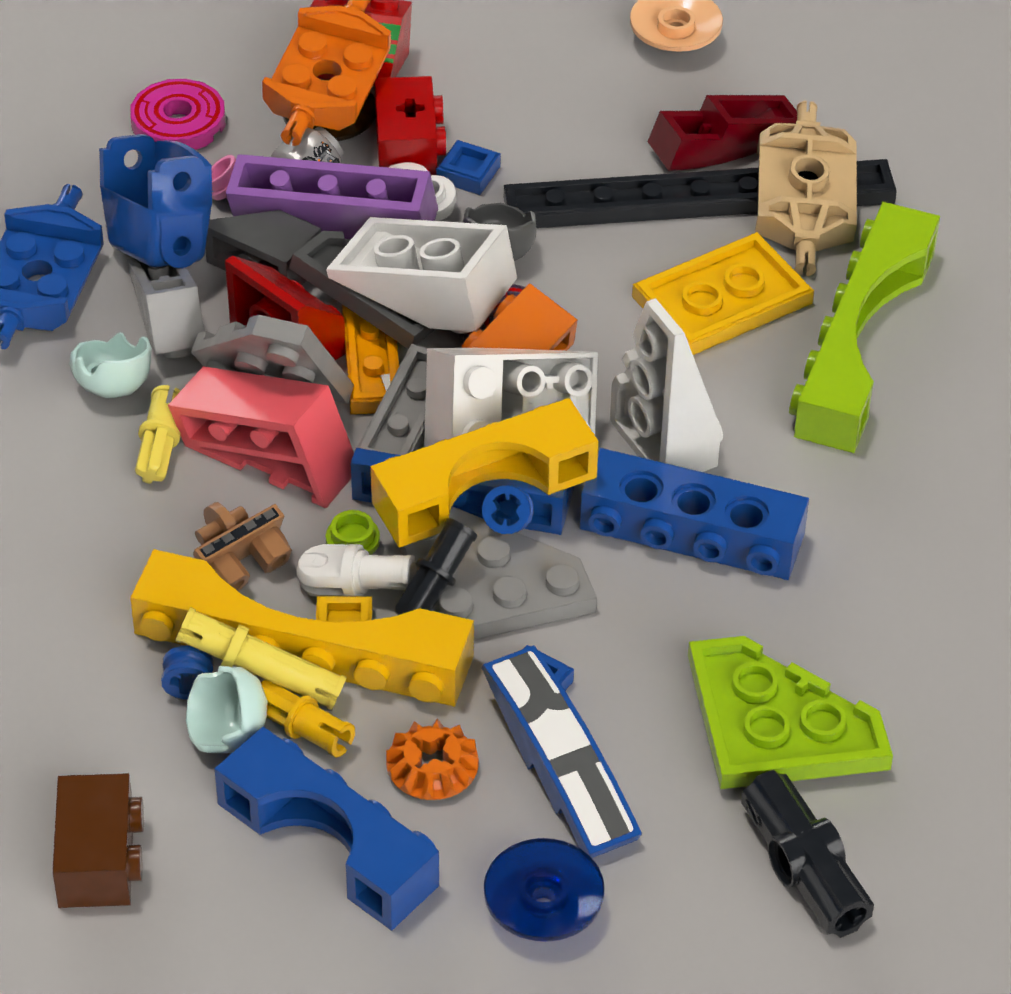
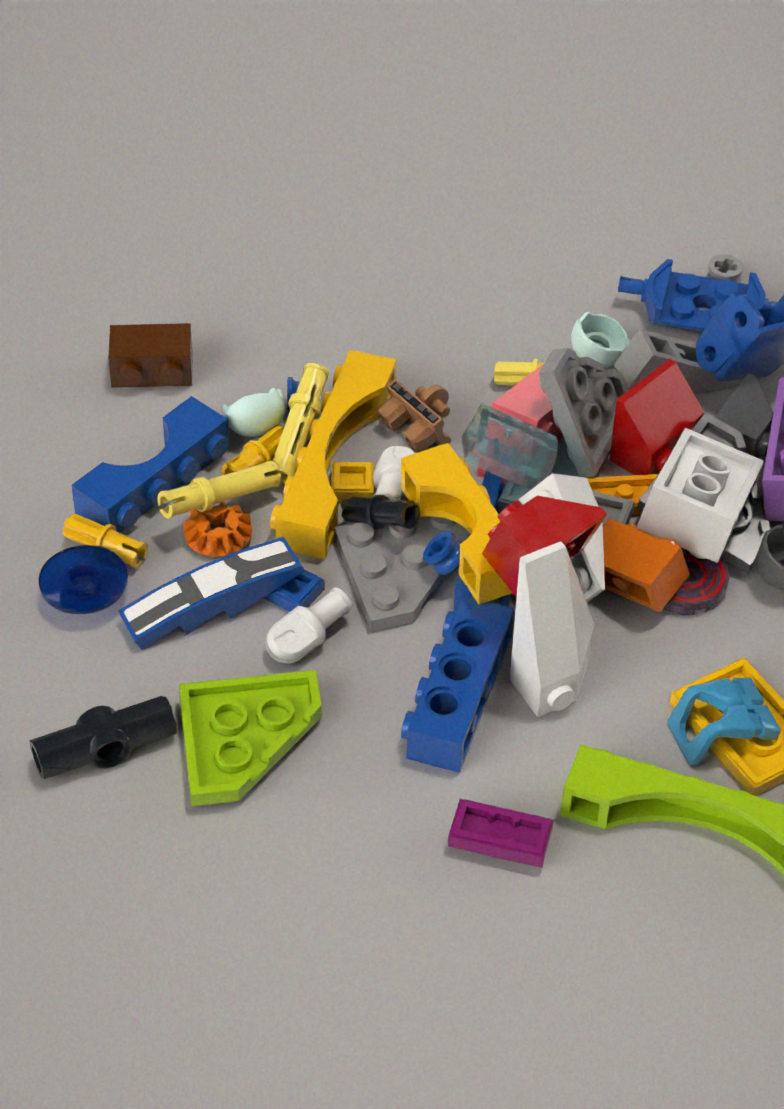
camera: 90 degrees right, 0 degrees up
(364, 422) = (509, 447): none -> clear light blue brick
(404, 748) = (204, 493): none -> light yellow pin
(461, 877) = (91, 533): none -> yellow axle
(594, 356) = (536, 526): none -> red slope
(613, 657) = (305, 627): none -> white arm
(712, 286) = (741, 718): none -> dark azure piece
(900, 490) = (500, 832): none -> magenta plate

